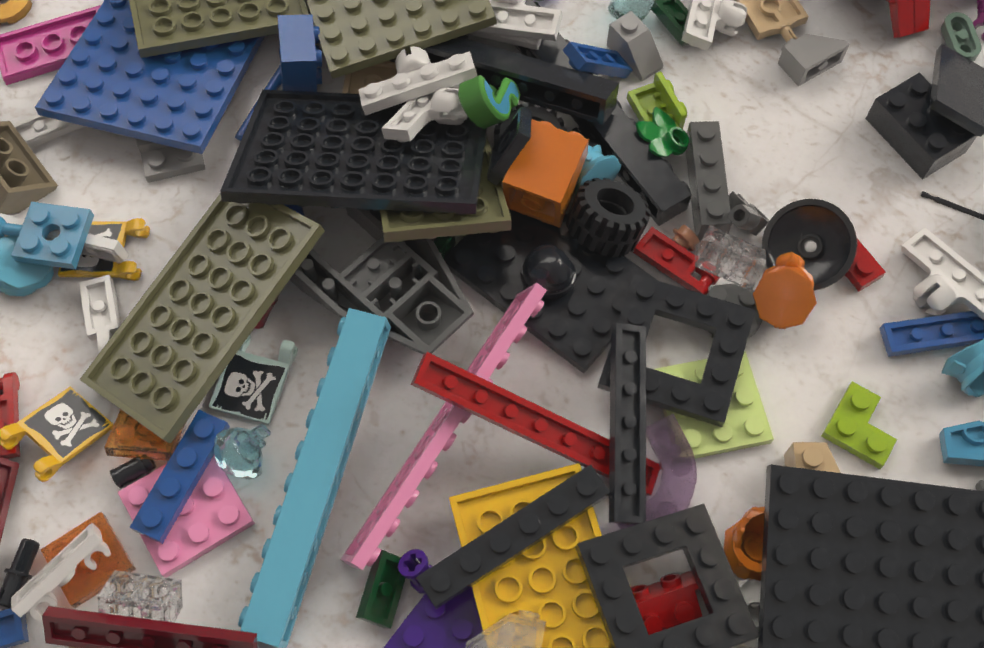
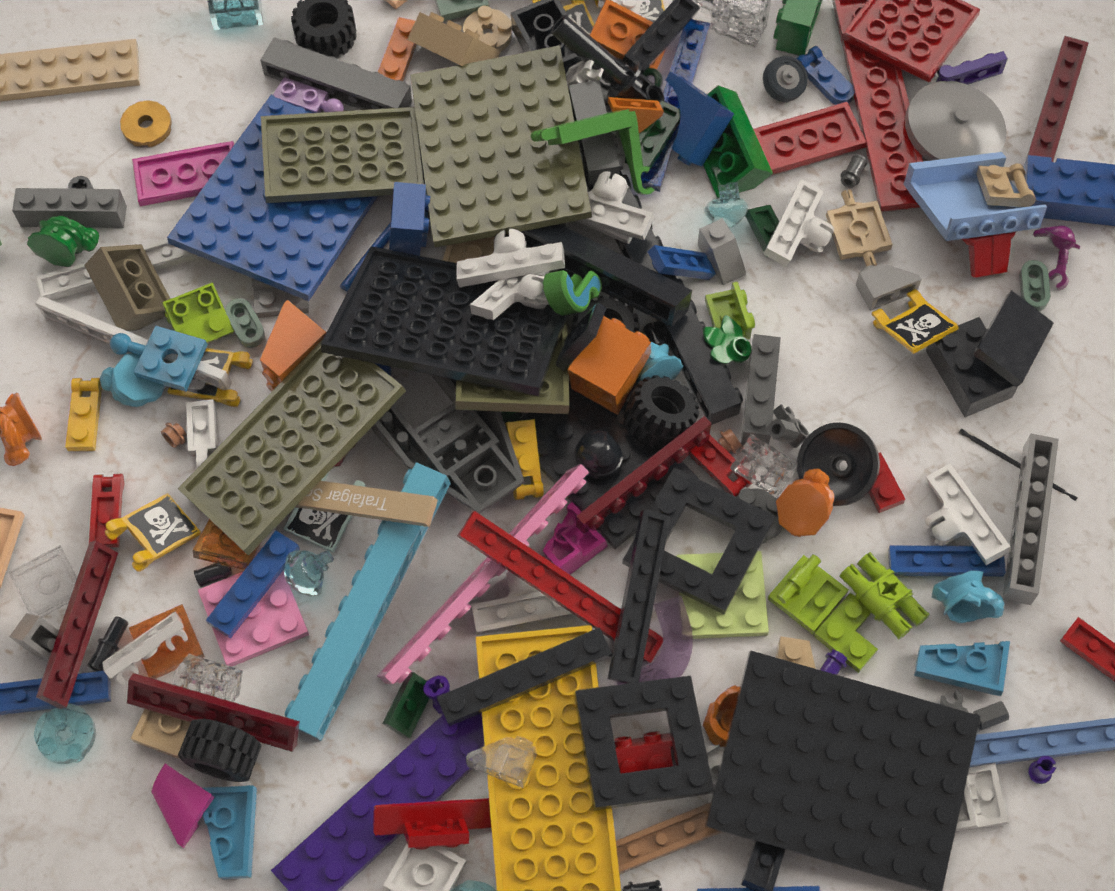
camera: 10 degrees right, 0 degrees up
(69, 320) = (173, 434): none -> nougat plate
(82, 184) = (198, 314): none -> lime plate
(136, 190) = (245, 324): none -> sand green plate
(184, 200) = (288, 344): none -> orange slope
(304, 362) = (371, 503): none -> tan tile
(466, 272) = (525, 447): none -> yellow plate
(494, 453) = (519, 608): none -> white plate
(538, 370) = (569, 546): none -> dark pink slope
(597, 294) = (637, 481): none -> dark red plate
(807, 389) = (808, 593): none -> lime plate
(853, 461) = (834, 662): none -> dark purple pin
(856, 90) = (917, 326): none -> flag
(892, 379) = (884, 595): none -> lime pin

